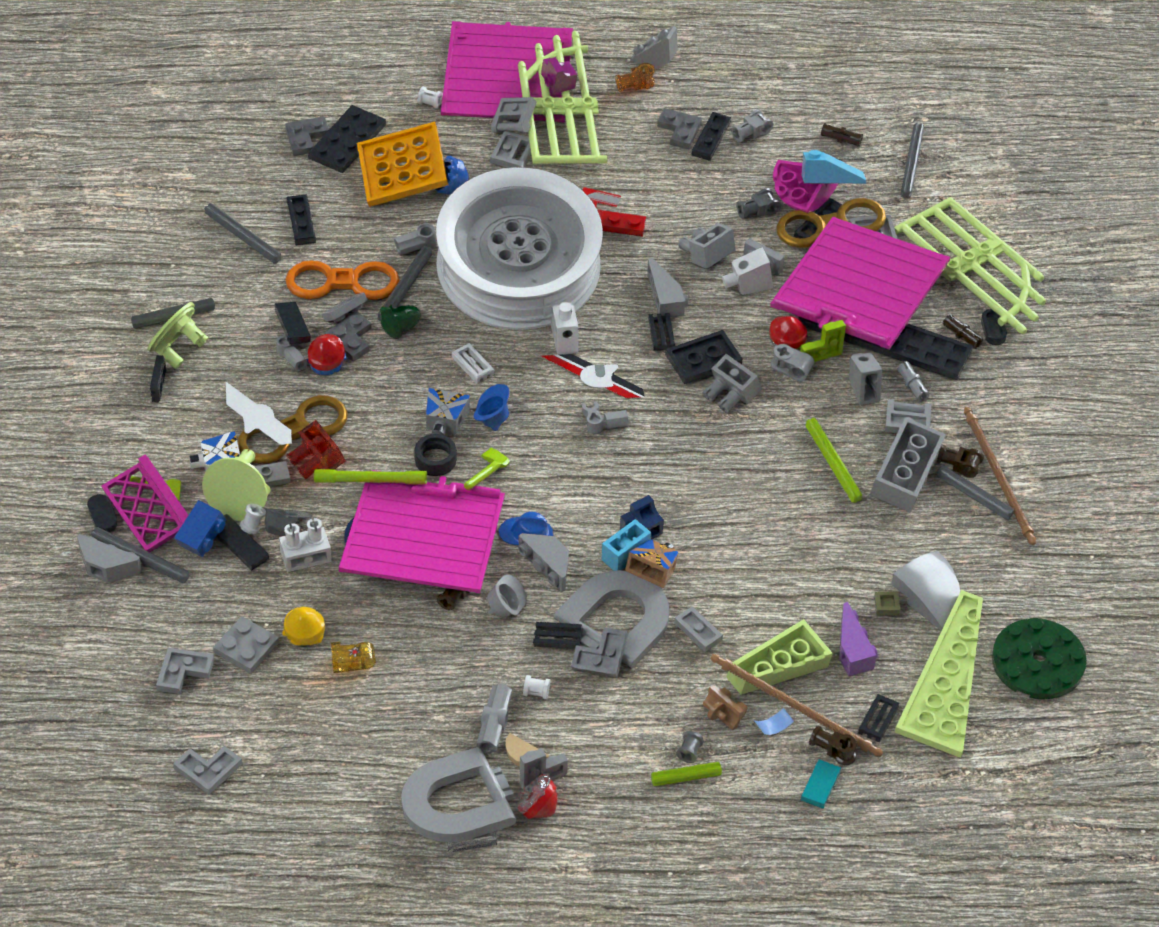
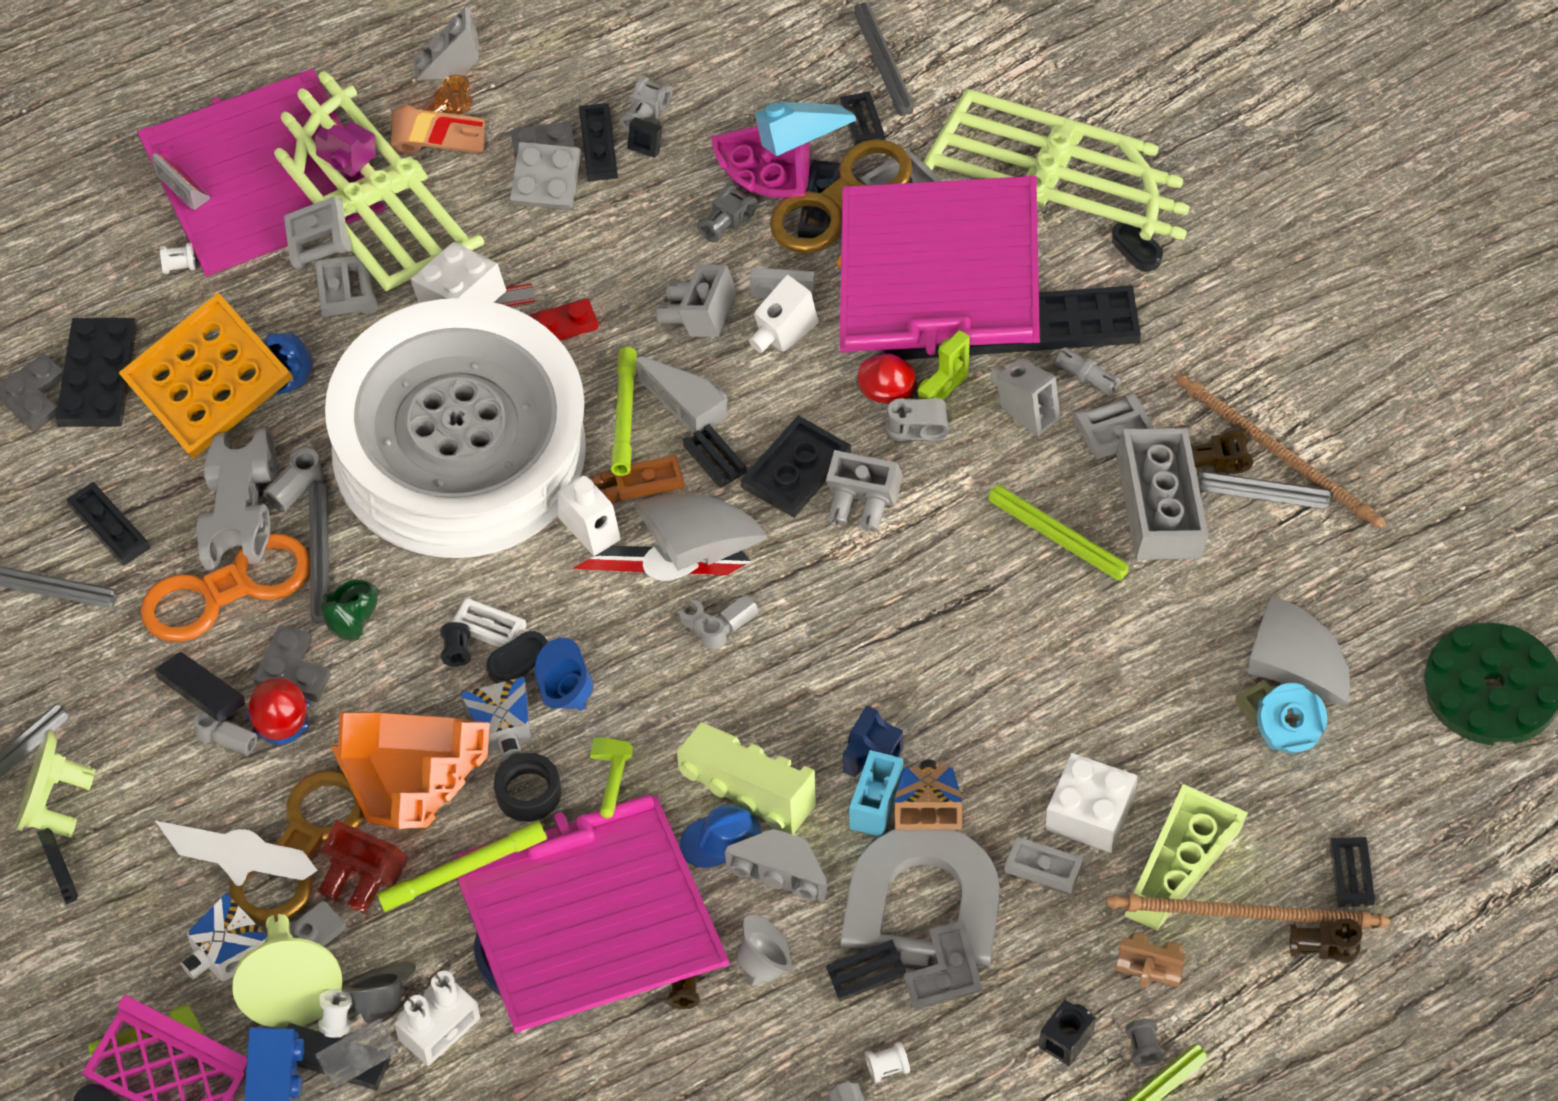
camera: 25 degrees left, 5 degrees up
(250, 543) = (357, 1053): none -> clear plate
(351, 304) = (256, 630): light grey plate -> none
(372, 243) = (236, 512): none -> light grey piece
(376, 411) = (407, 763): none -> orange panel
(446, 364) = (455, 644): none -> black bush
(457, 57) = (179, 182): none -> light grey slope
(474, 384) = (515, 657): none -> black tile
(560, 506) = (749, 777): none -> yellowish green wedge
(578, 170) = (458, 274): none -> white brick
(607, 302) = (622, 449): none -> lime piece
(607, 324) = (643, 480): none -> dark orange hinge
(621, 90) = (418, 128): none -> nougat door
(625, 364) = (698, 527): none -> light grey brick
(648, 728) = (1067, 1045): none -> black brick
(666, 140) = (545, 175): none -> light grey plate
(739, 143) = (645, 136): none -> black tile
(748, 608) = (1091, 802): none -> white brick
(775, 723) = (1226, 947): light blue sticker -> none
(820, 784) = (1341, 1005): teal tile -> none
(841, 134) = (770, 63): dark brown pin -> none
(855, 649) = (1258, 786): medium lavender slope -> none
(879, 175) = (855, 99): none -> black tile
(904, 630) = (1272, 723): none -> medium azure plate
(941, 697) = (1412, 805): yellowish green wing -> none
(962, 331) = (1103, 270): dark brown pin -> none

